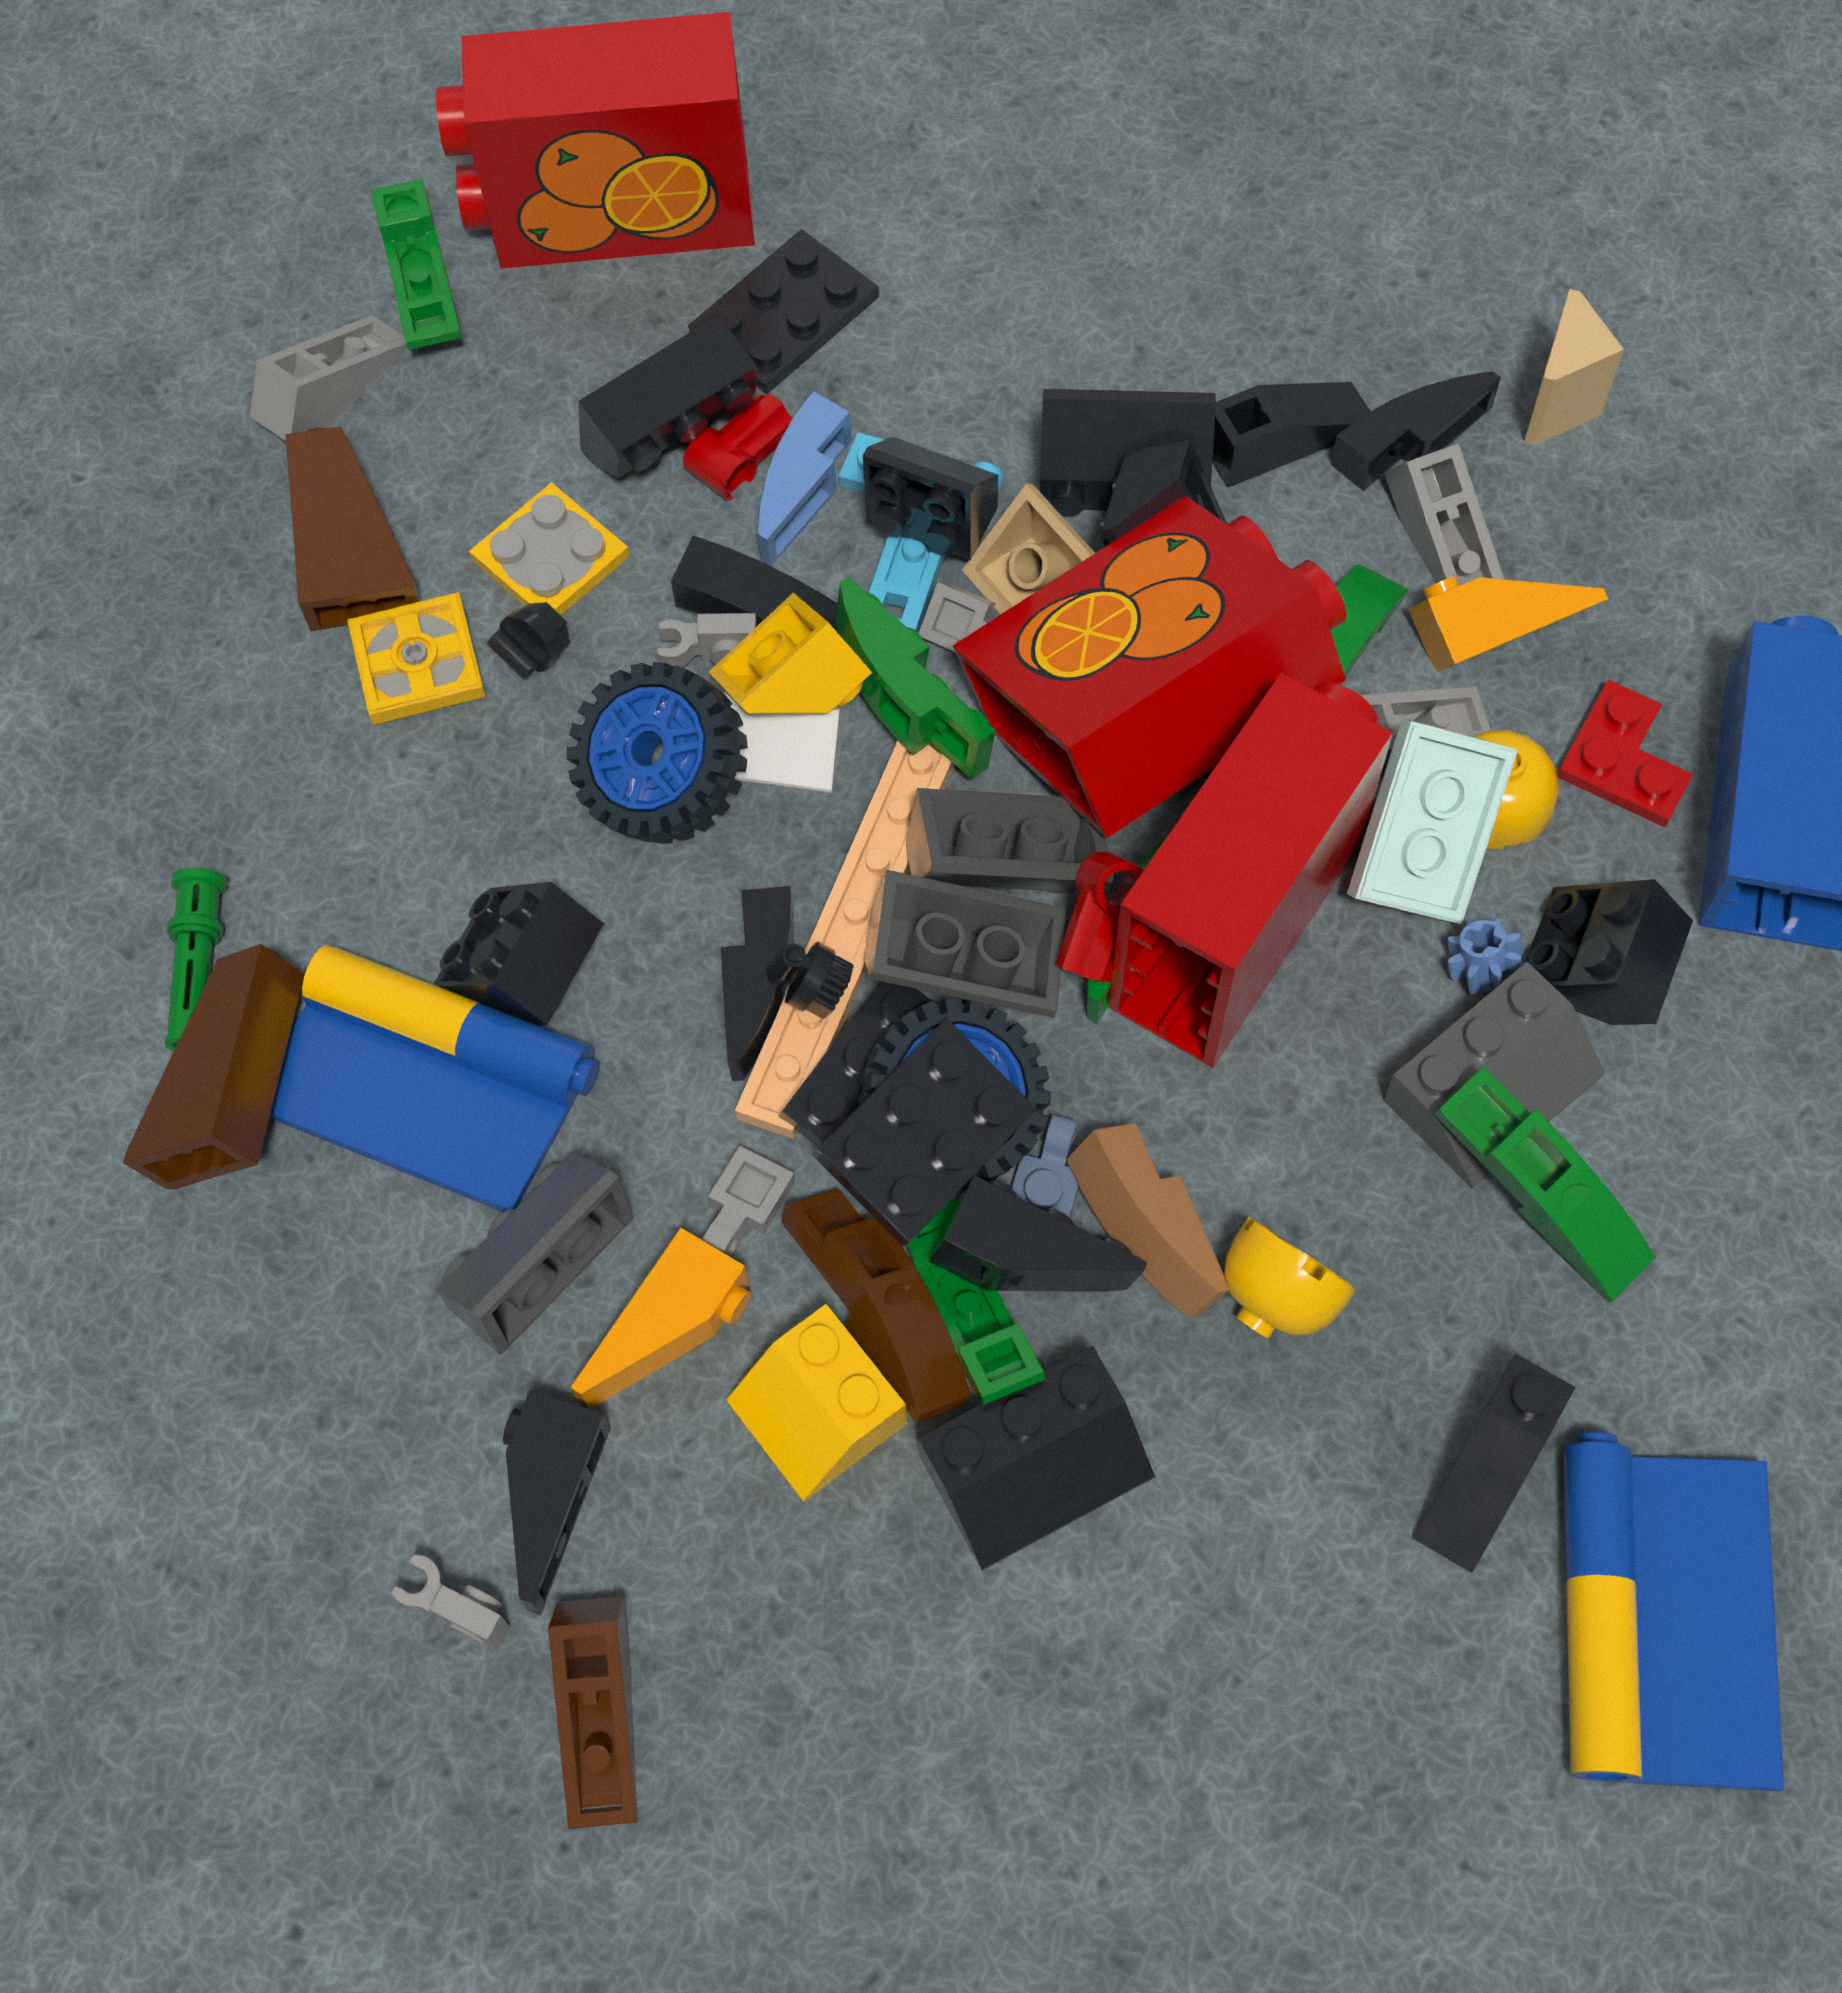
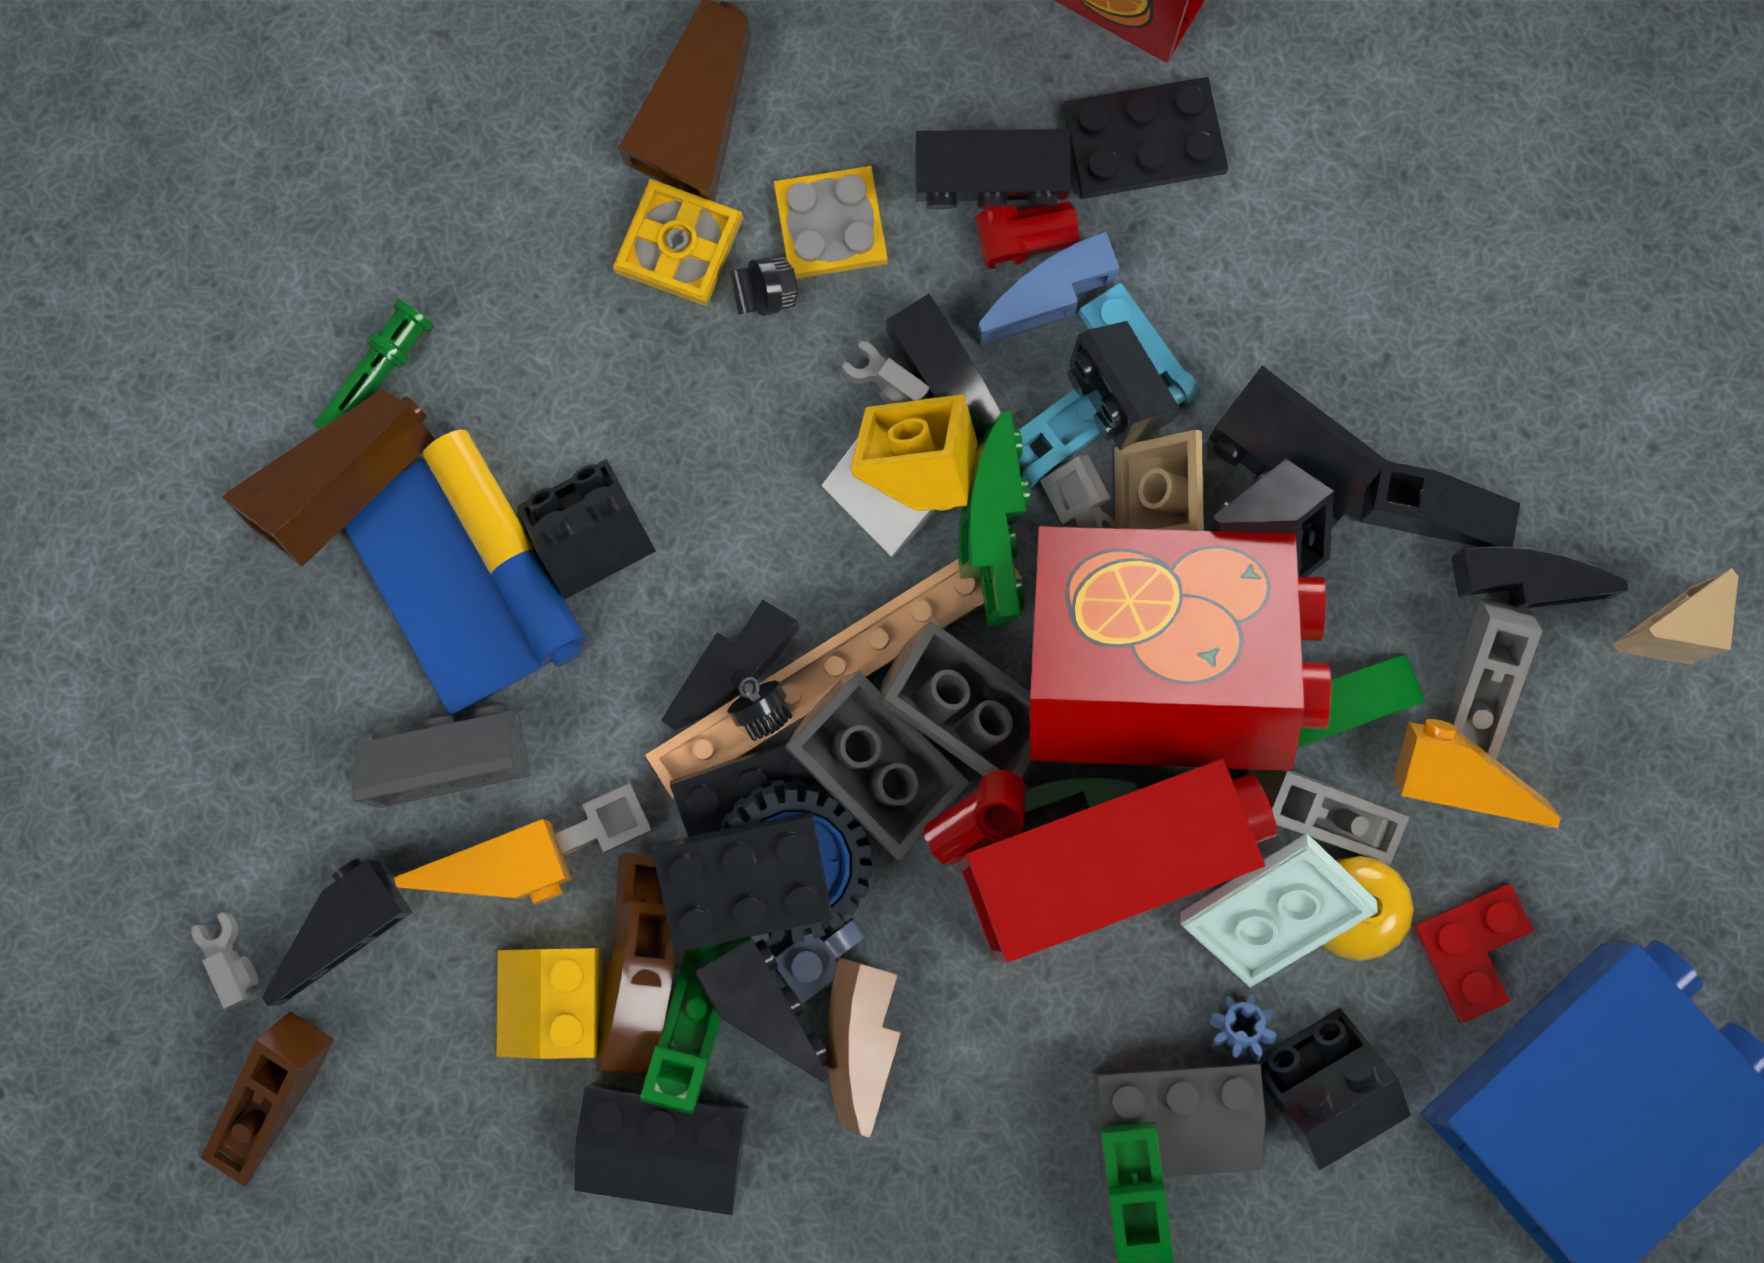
camera: 35 degrees right, 15 degrees up
(696, 761) = (747, 443): wheel -> none
(1281, 1284) = (911, 1158): yellow cylinder -> none

